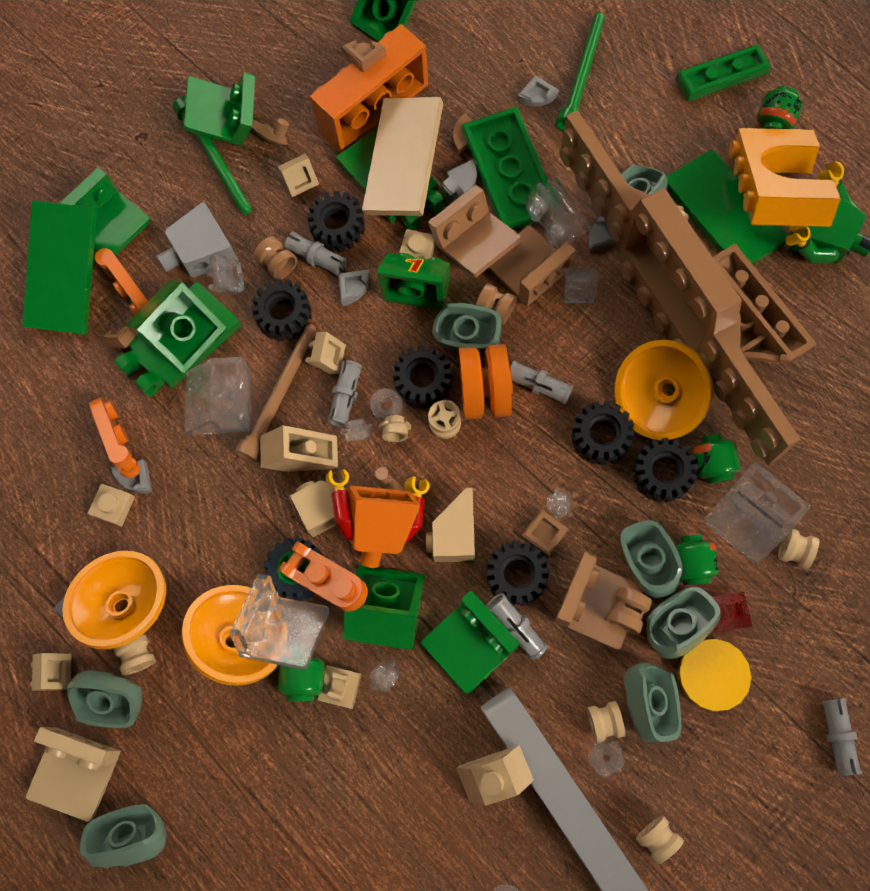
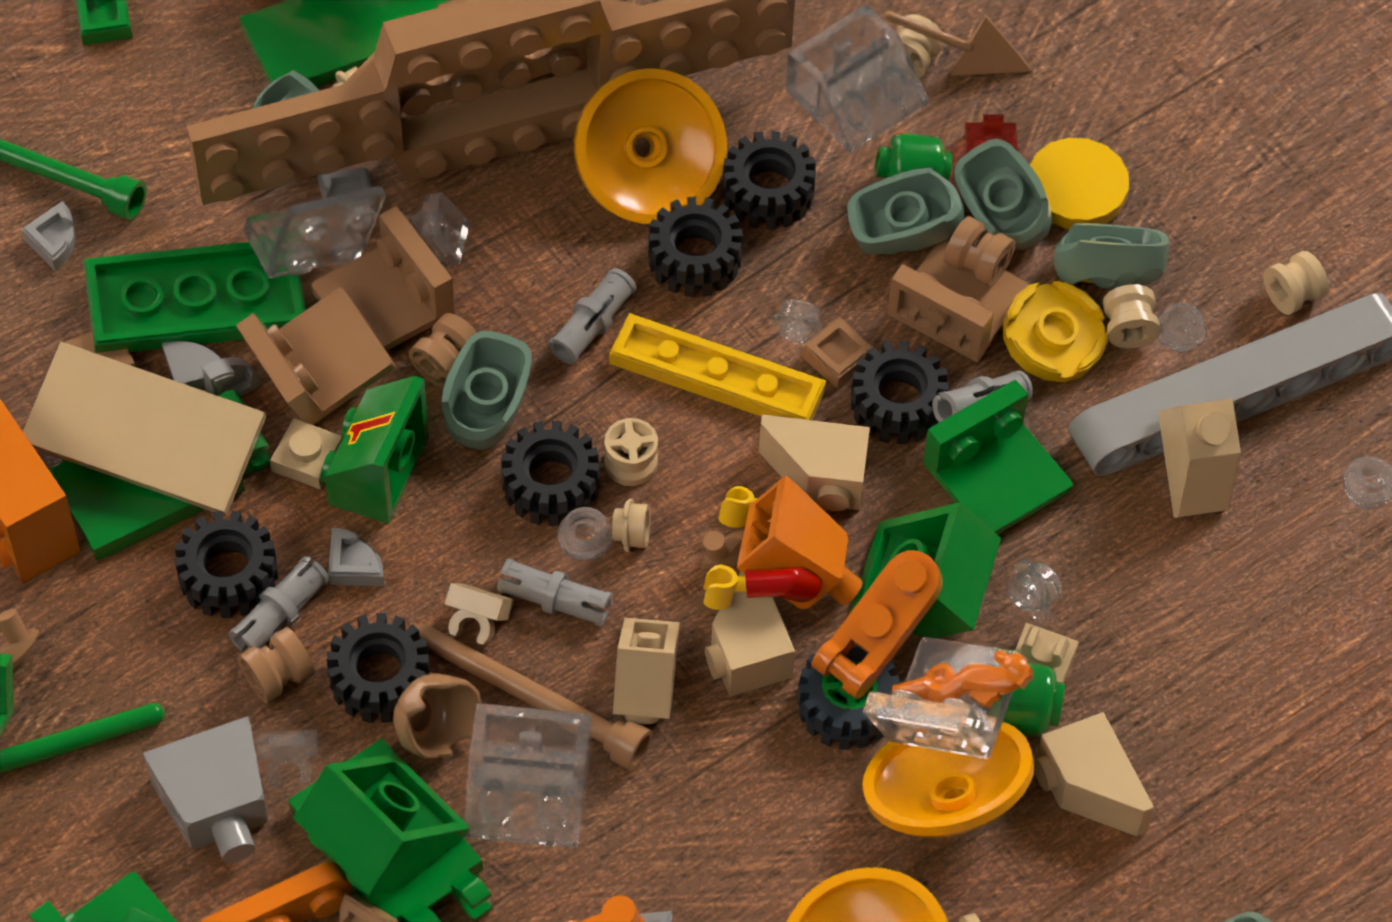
camera: 90 degrees left, 15 degrees down
(248, 340) = (435, 715): none -> medium nougat hair
(254, 725) = (1093, 775): none -> tan slope
(282, 647) = (982, 681): none -> orange animal
(298, 175) = (117, 611): tan tile -> none
(356, 430) = (626, 577): clear plate -> none
(488, 381) = (589, 368): orange wheel -> none
(515, 463) = (715, 370): none -> yellow tile
(585, 671) = (1055, 331): none -> yellow tile
(716, 459) = (765, 108): green head -> none
(807, 597) = (983, 54): none -> medium nougat piece
(841, 737) = (1176, 58): light grey pin -> none

